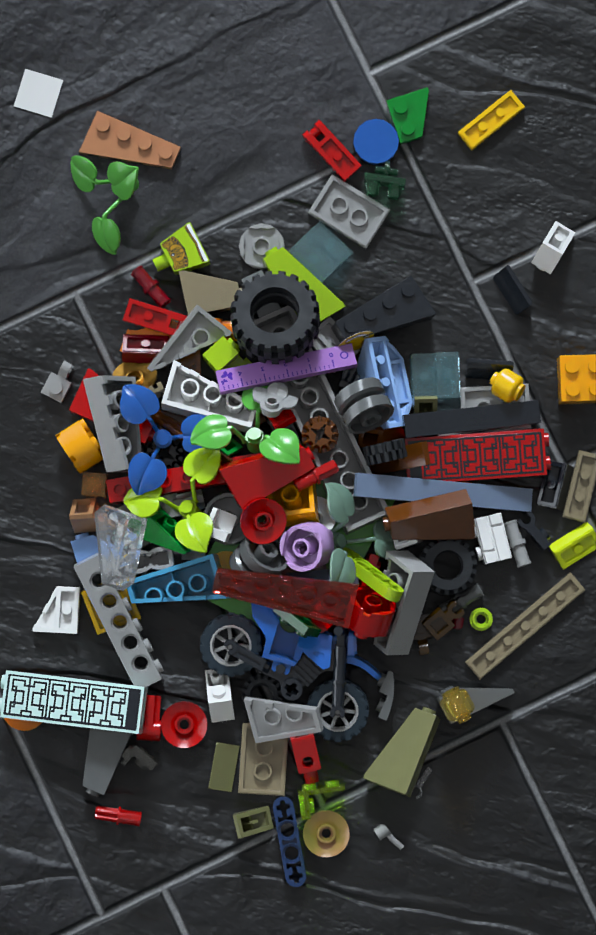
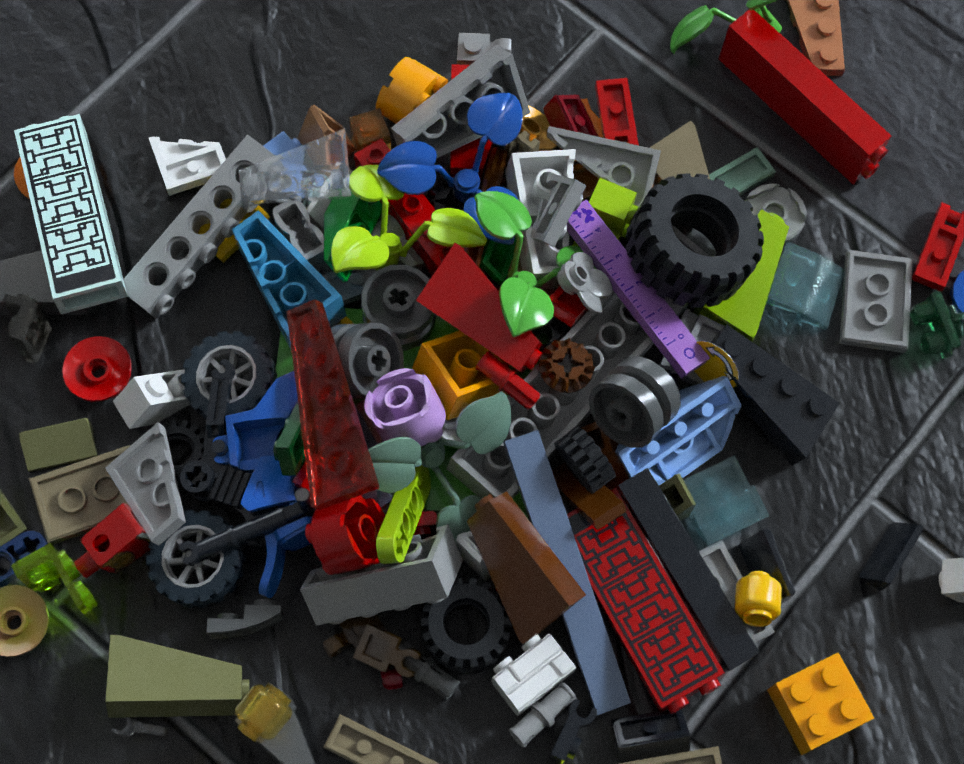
camera: 65 degrees right, 15 degrees down
(150, 287) = (653, 104): dark red pin -> none
(152, 721) = (88, 323): red piece -> none
(182, 252) = (719, 120): torso -> none
(195, 188) = (804, 97): none -> red brick
(218, 394) = (555, 213): none -> light grey wing
(222, 524) = (384, 286): white panel -> none
(225, 255) = (745, 171): none -> sand green tile
(270, 528) = (397, 328): red dish -> none
(382, 831) = (46, 702): light grey hand -> none
(488, 619) = (405, 700): lime plate -> none

